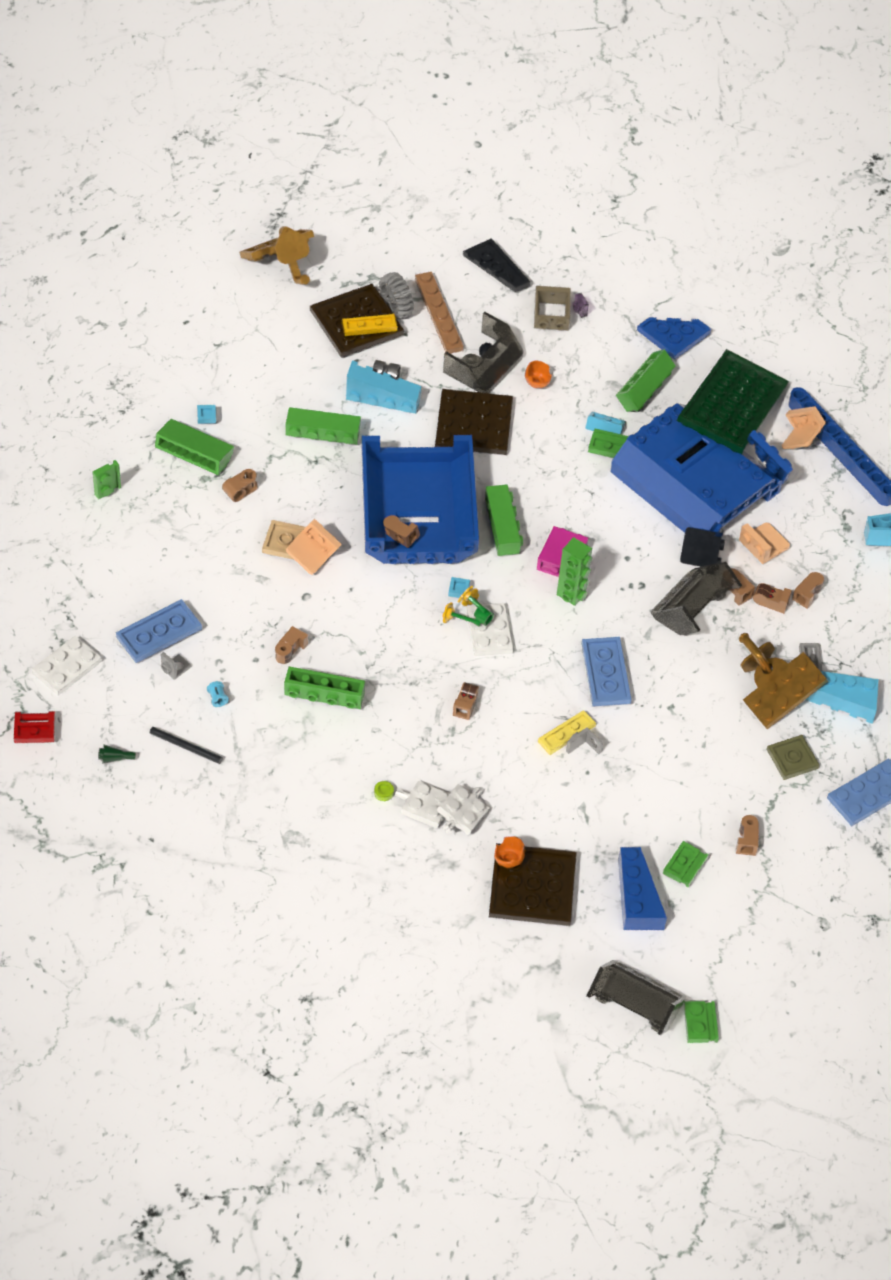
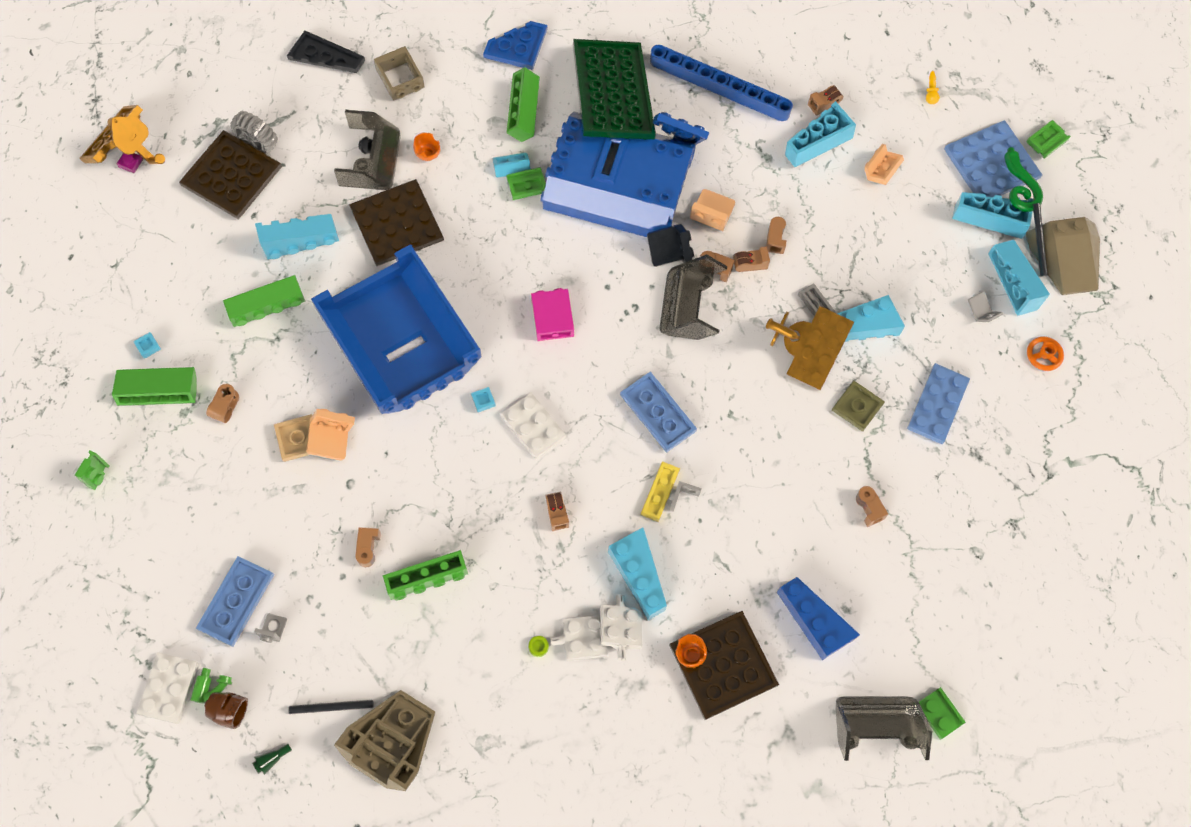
camera: 30 degrees left, 15 degrees up
(34, 731) = (177, 781): red plate -> none
(91, 680) = (202, 684): none -> bright green plant
(104, 699) = (226, 709): none -> reddish brown helmet
(215, 788) = (389, 741): none -> dark tan wedge
(217, 694) = (334, 639): medium azure bush -> none
(279, 273) = (129, 162): none -> magenta plate
(369, 324) = (246, 174): yellow tile -> none
(392, 369) = (293, 211): flat silver wheel -> none
(400, 531) = (399, 374): medium nougat leg -> none
(439, 312) = (300, 128): medium nougat plate -> none
(469, 597) = (523, 418): plant -> none
(503, 520) = (482, 310): bright green brick -> none
(507, 770) = (639, 572): none -> medium azure wedge
(574, 571) = (582, 334): bright green brick -> none
(580, 305) = (422, 58): clear purple plate -> none
(685, 863) = (836, 565): bright green plate -> none
(806, 424) = (683, 82): light nougat bracket -> none

